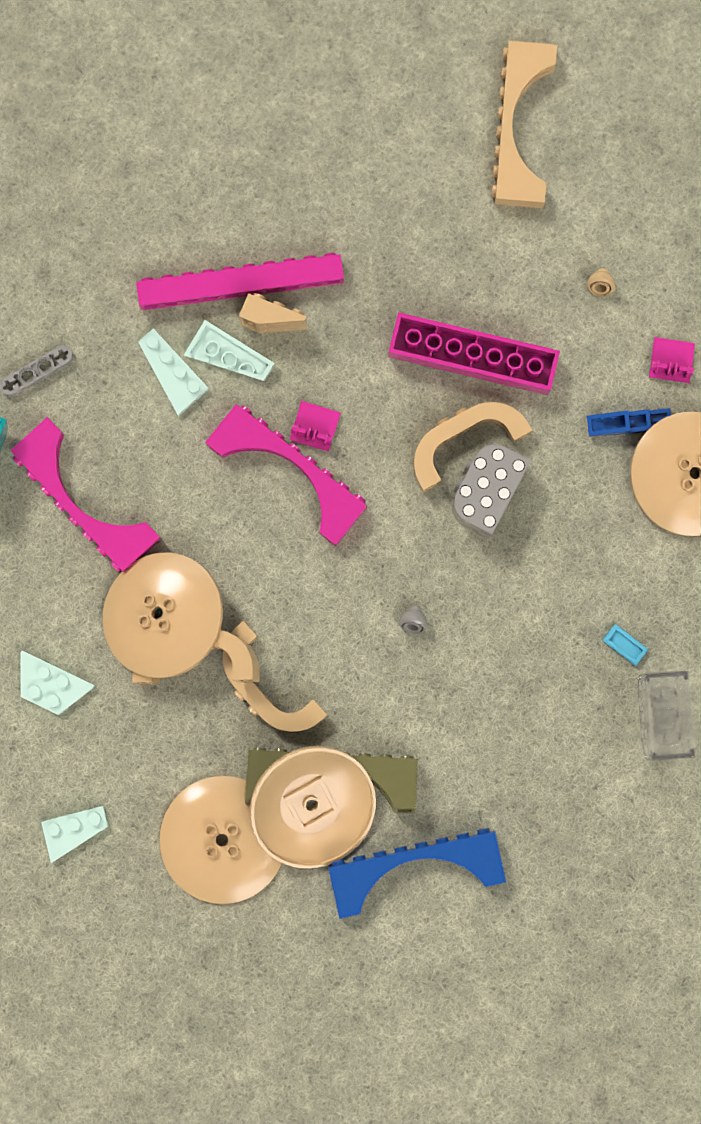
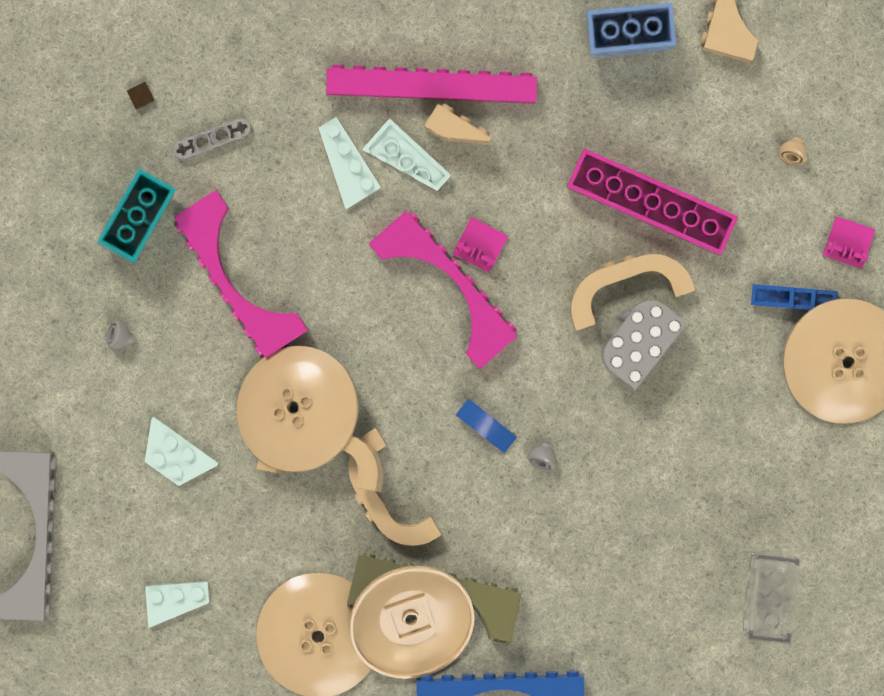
camera: 10 degrees right, 5 degrees up
(352, 599) = (486, 425): none -> blue slope
(422, 193) = (630, 30): none -> medium blue brick
(625, 645) = (746, 517): medium azure tile -> none

